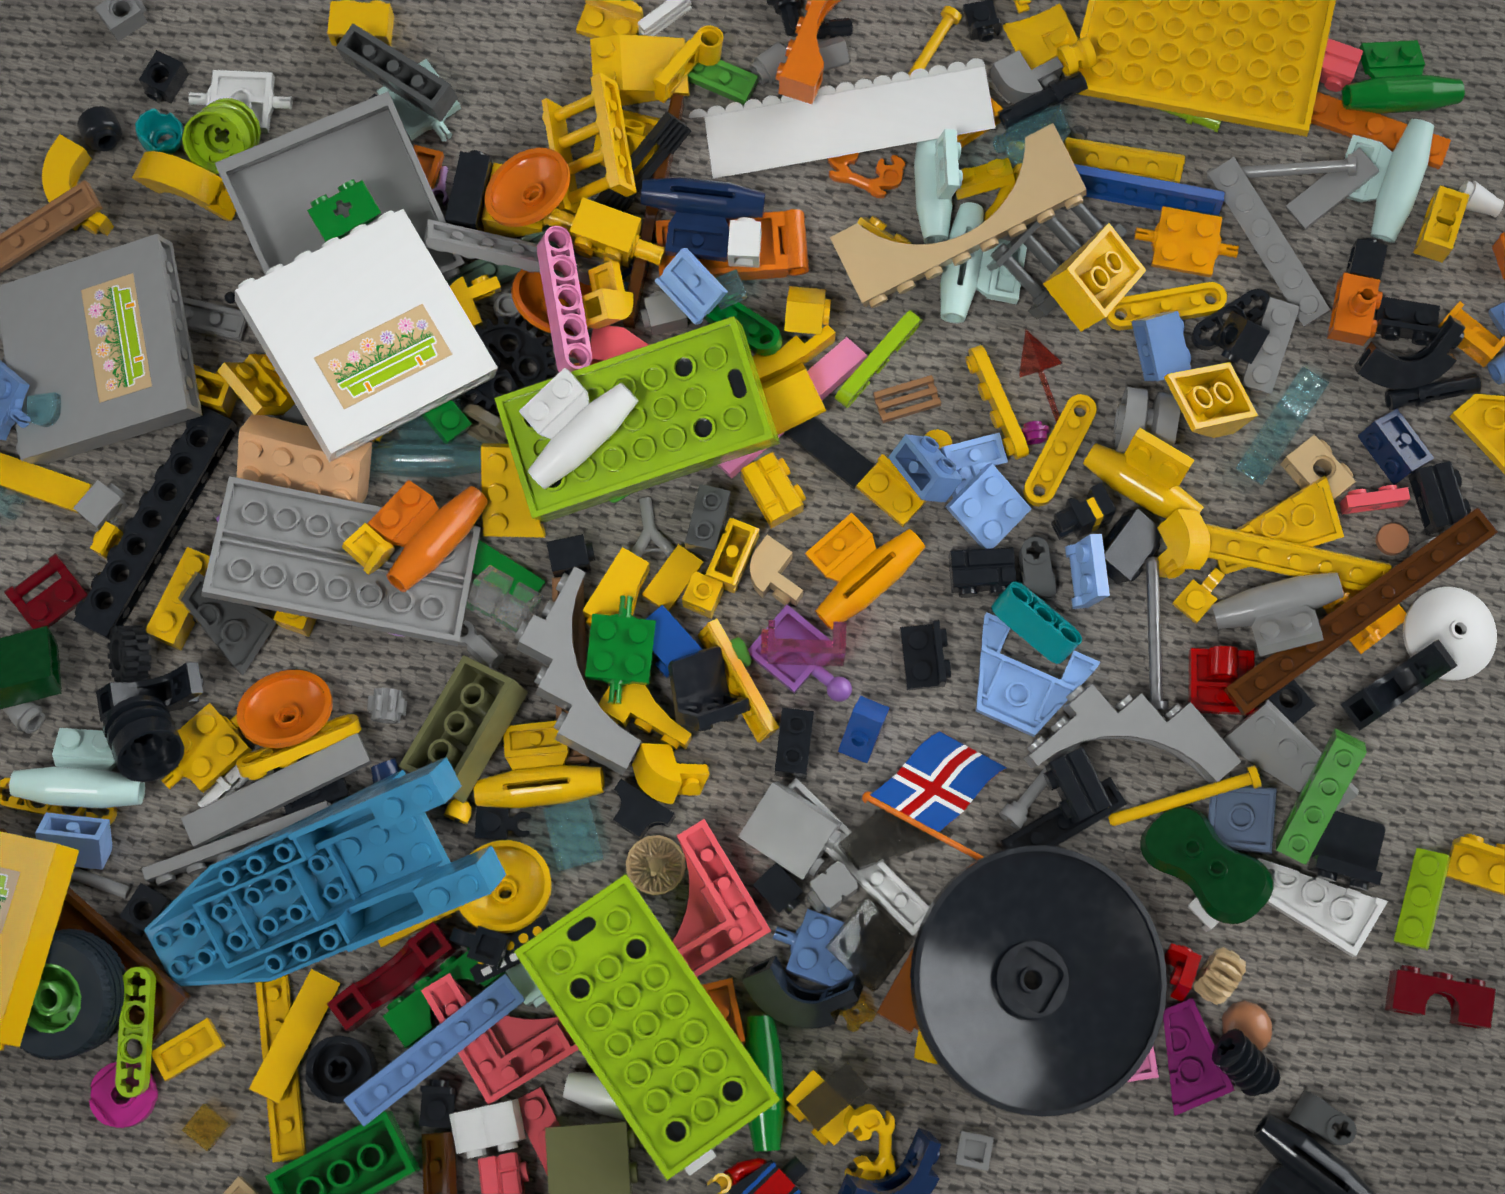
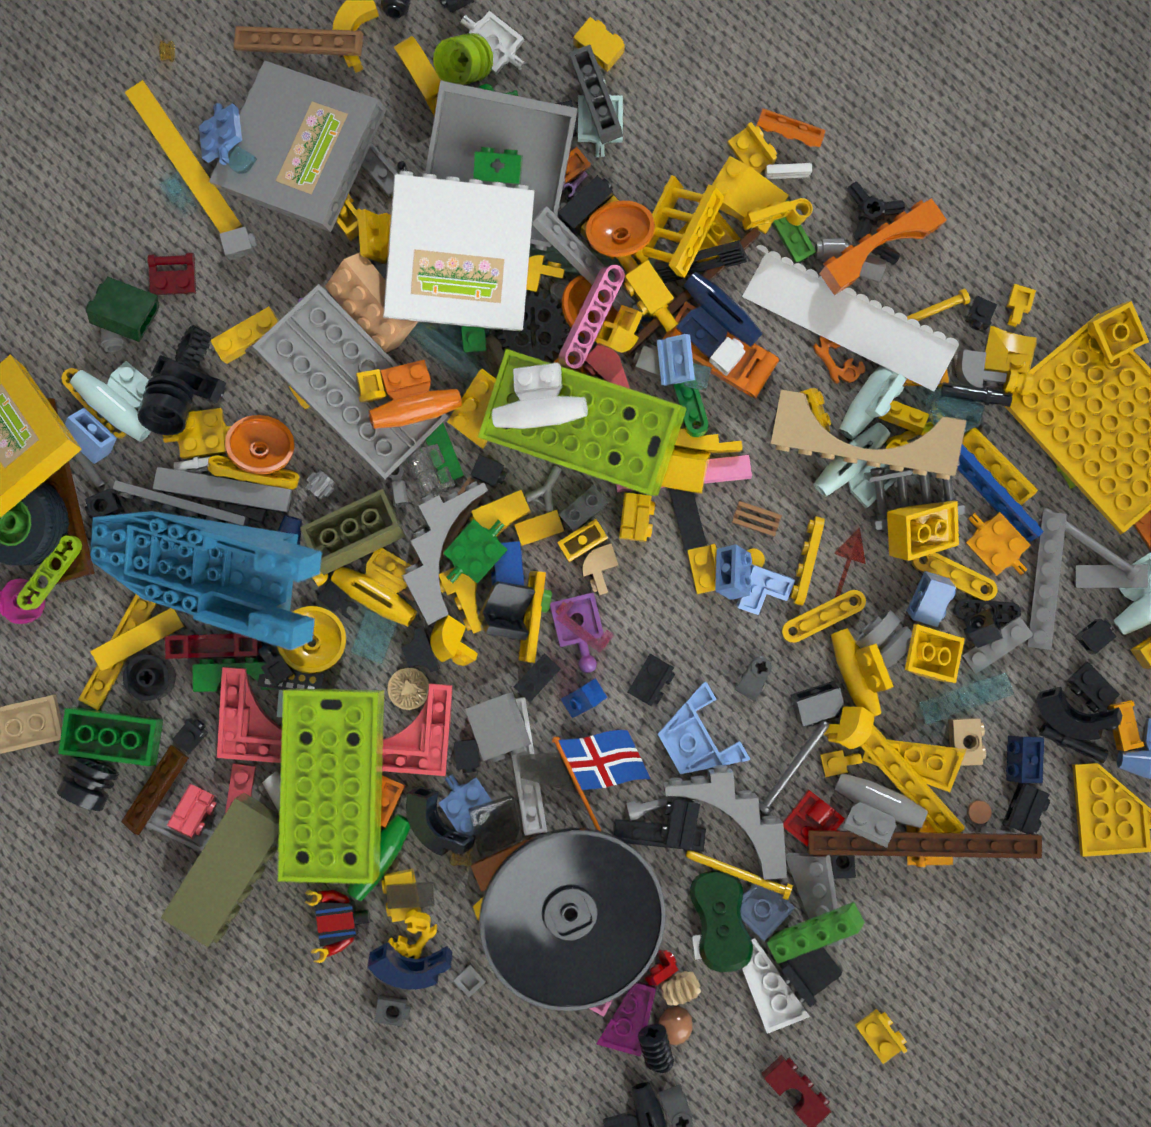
camera: 35 degrees right, 10 degrees up
(105, 539) = (227, 268): yellow plate -> none
(153, 125) = (429, 21): teal hair -> none
(157, 540) = (256, 288): black brick -> none
(187, 1049) = (73, 602): yellow plate -> none
(206, 1127) = (54, 653): clear yellow plate -> none
(232, 626) = (261, 377): dark grey wing -> none
(434, 1049) = (206, 707): medium blue plate -> none
(487, 1127) = (206, 767): white brick -> none
(703, 594) = (548, 551): yellow brick -> none
(806, 310) = (735, 423): yellow brick -> none
(831, 888) = (496, 778): light grey brick -> none
(860, 569) = (652, 602): light orange plate -> none
(878, 358) = (757, 482): lime beam -> none
(981, 571) = (722, 655): black brick -> none
(988, 507) = (754, 620): light blue plate -> none
(1035, 432) = (816, 595): magenta plate -> none
(1036, 622) = (730, 710): teal beam -> none
(1085, 516) = (807, 669): black hips -> none
(1088, 571) = (783, 702): light blue plate -> none
(1354, 309) = (1066, 659): orange brick -> none
(1384, 498) = (995, 785): coral plate -> none
(1398, 685) = (913, 900): black arch -> none
(1422, 899) = (831, 1029): lime plate -> none
(1435, 617) = (957, 884): white dish -> none

